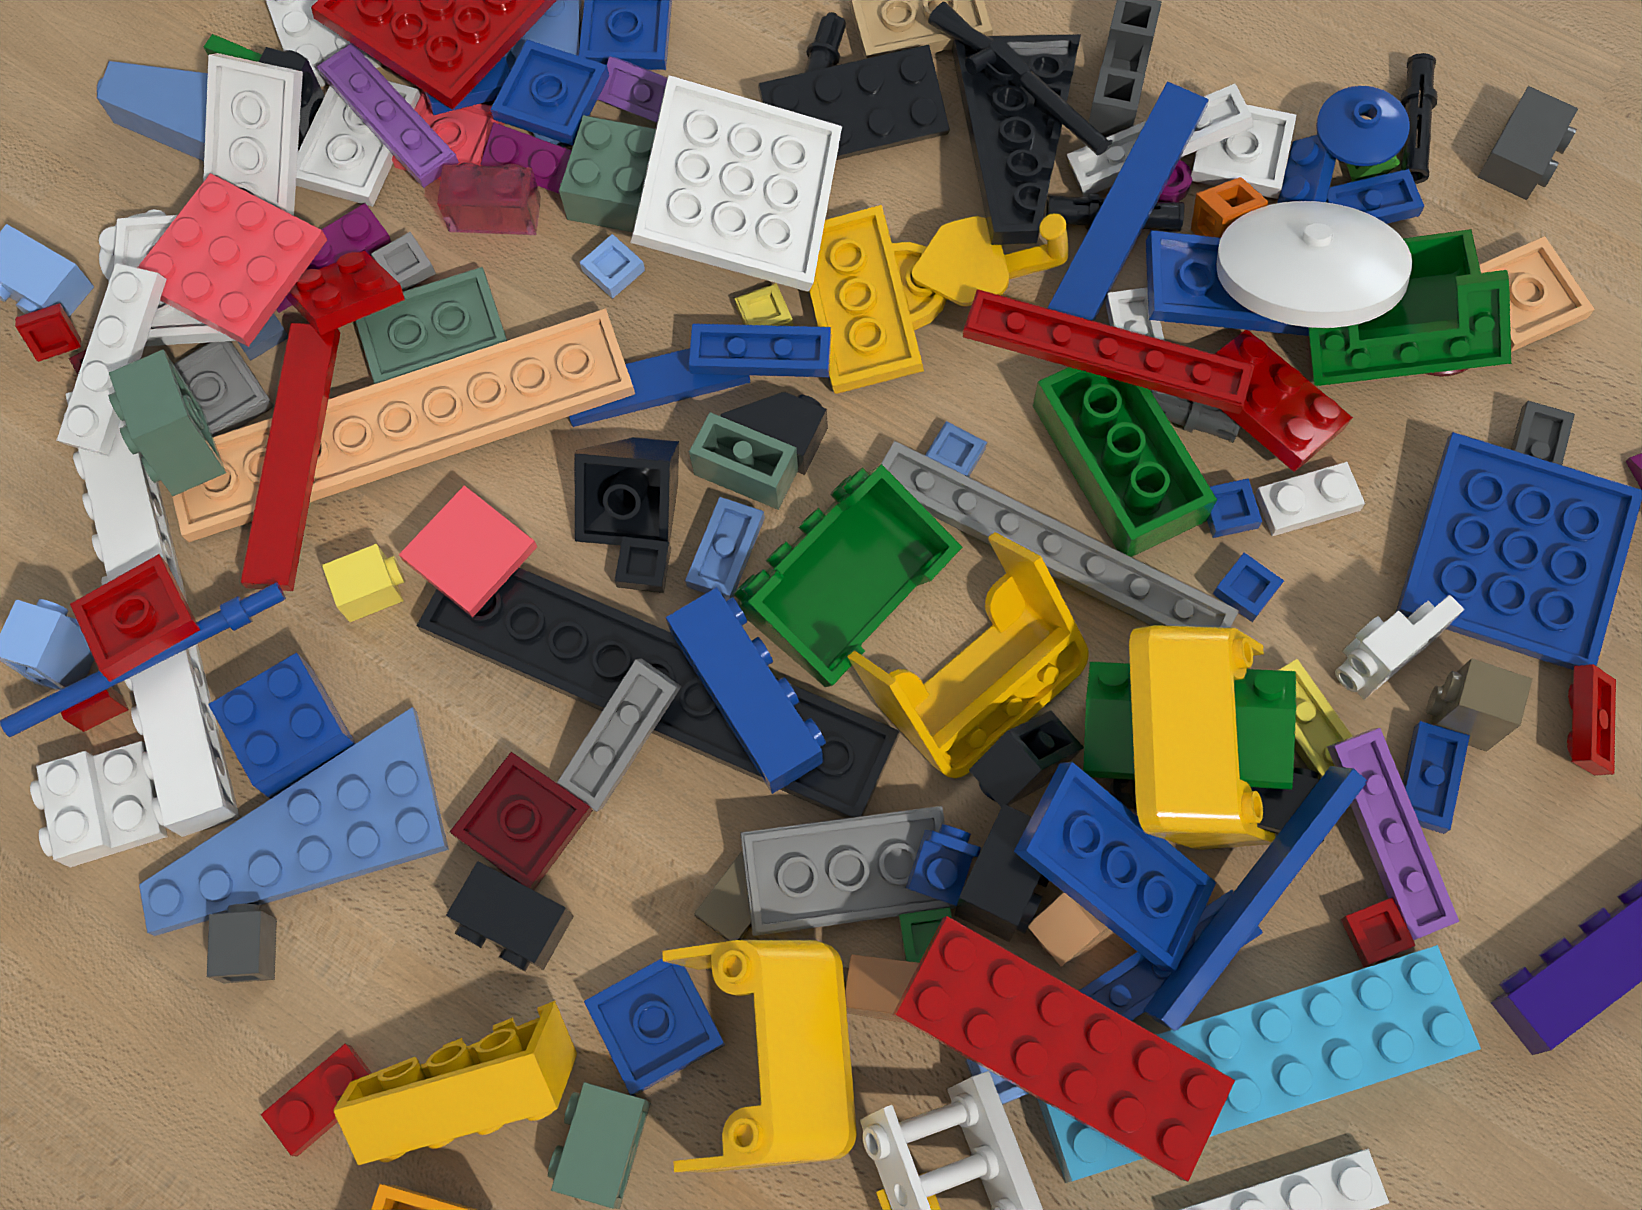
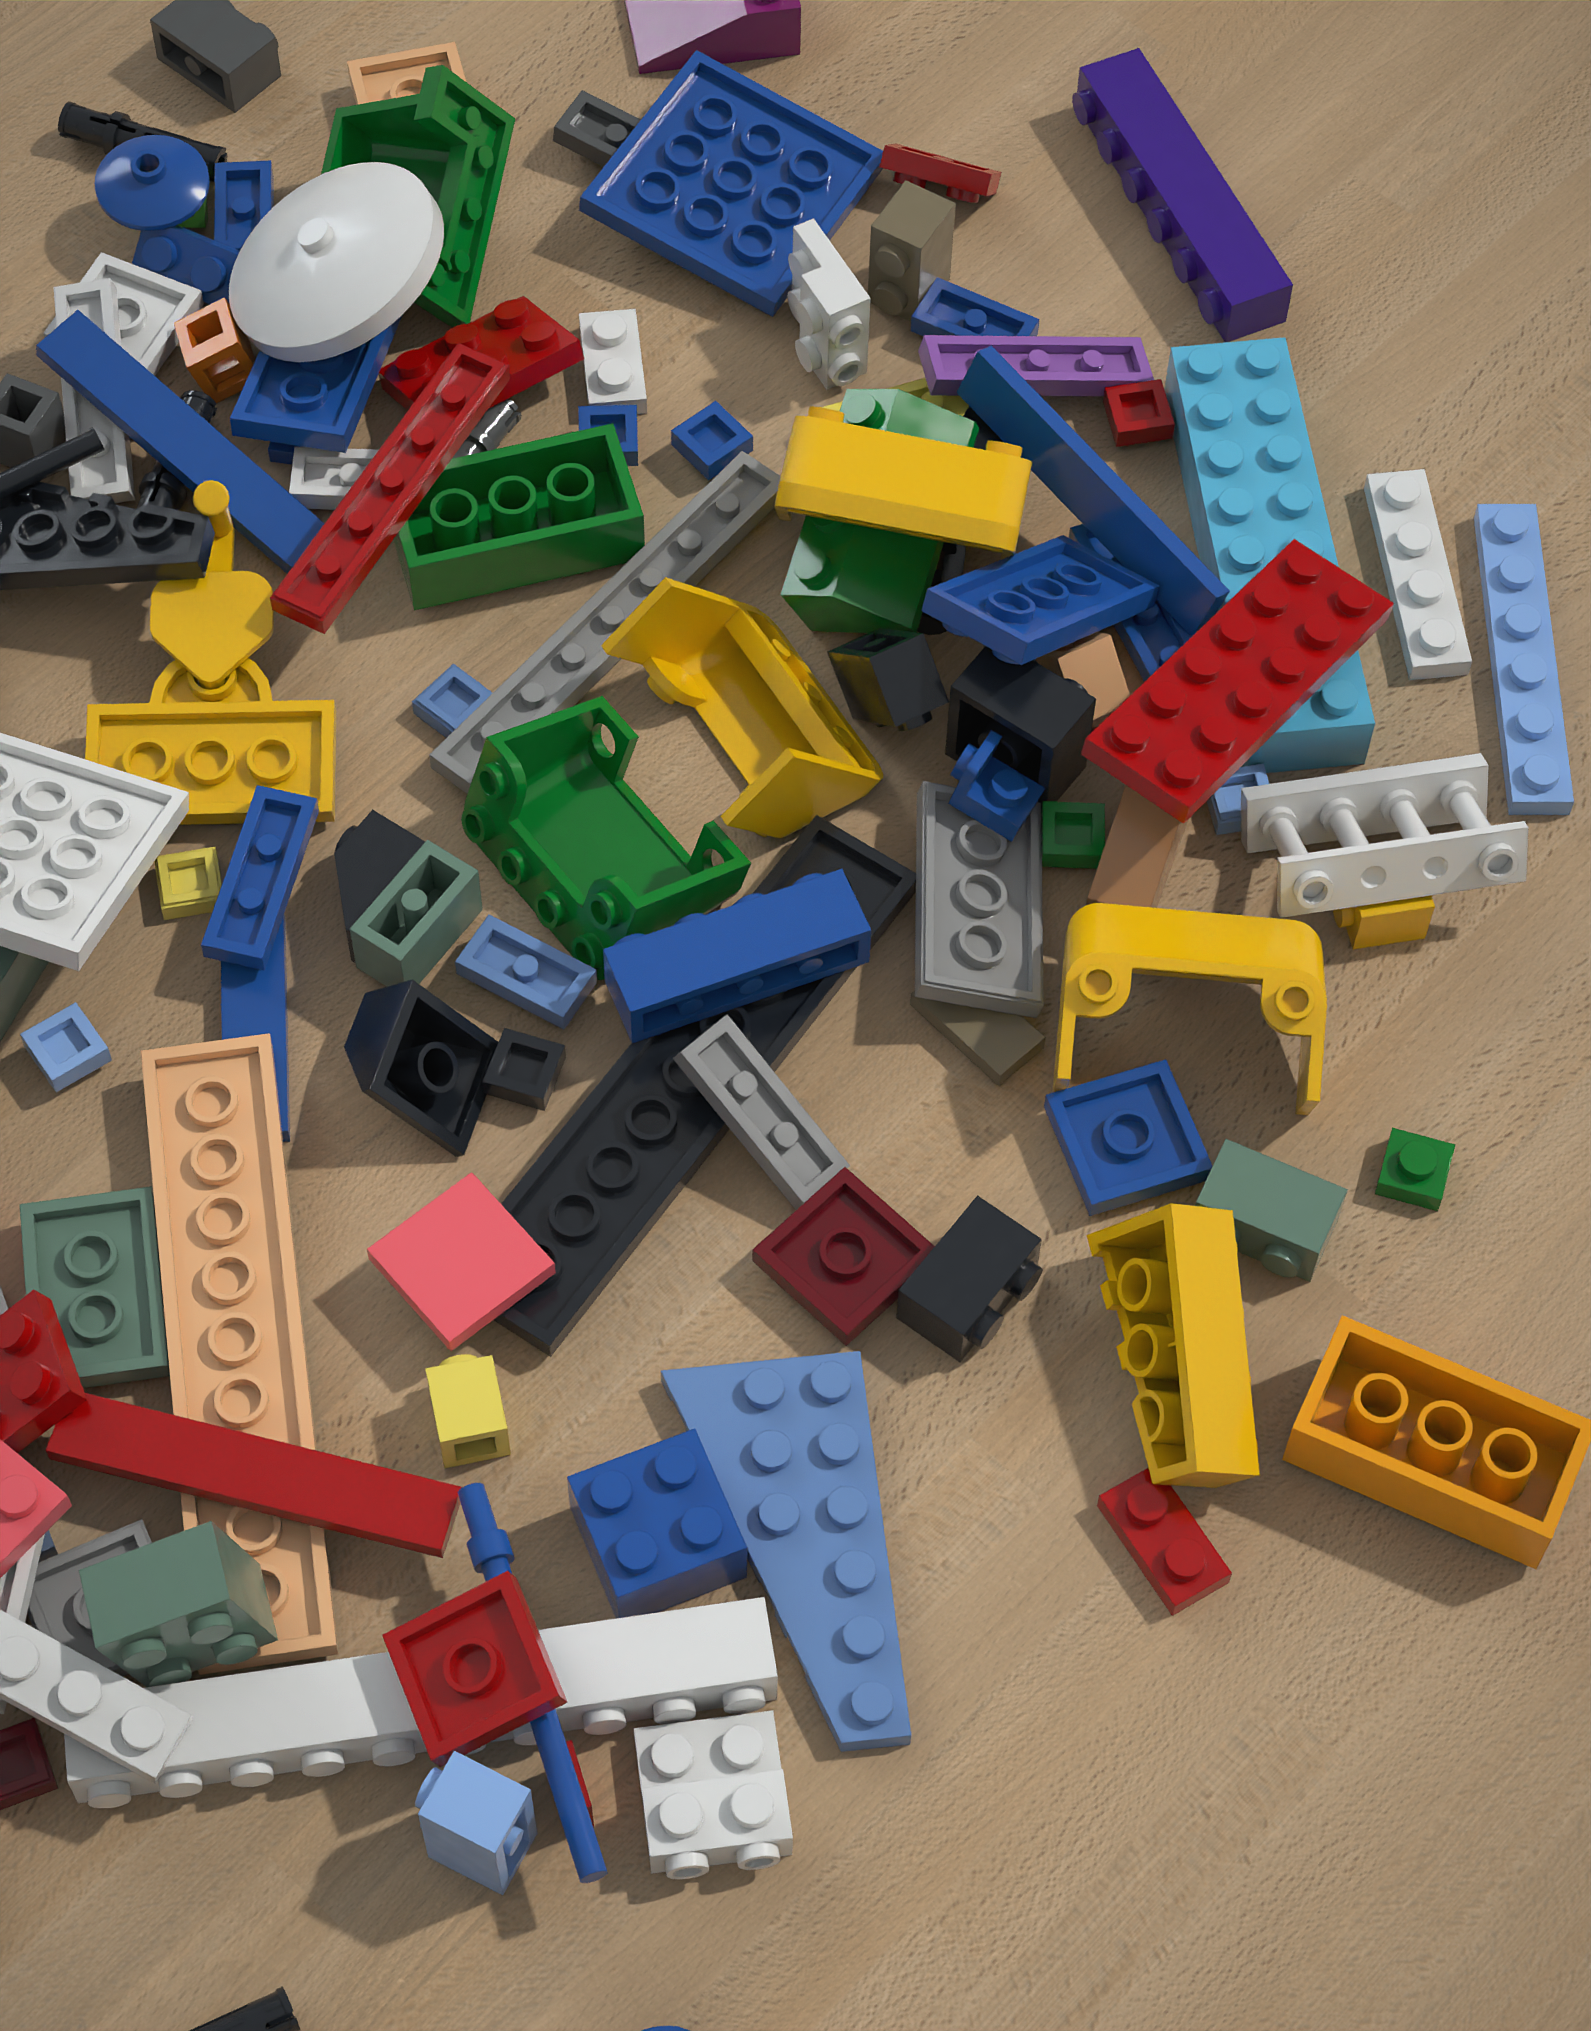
camera: 85 degrees left, 10 degrees down
(241, 945) = (950, 1608): dark grey brick -> none

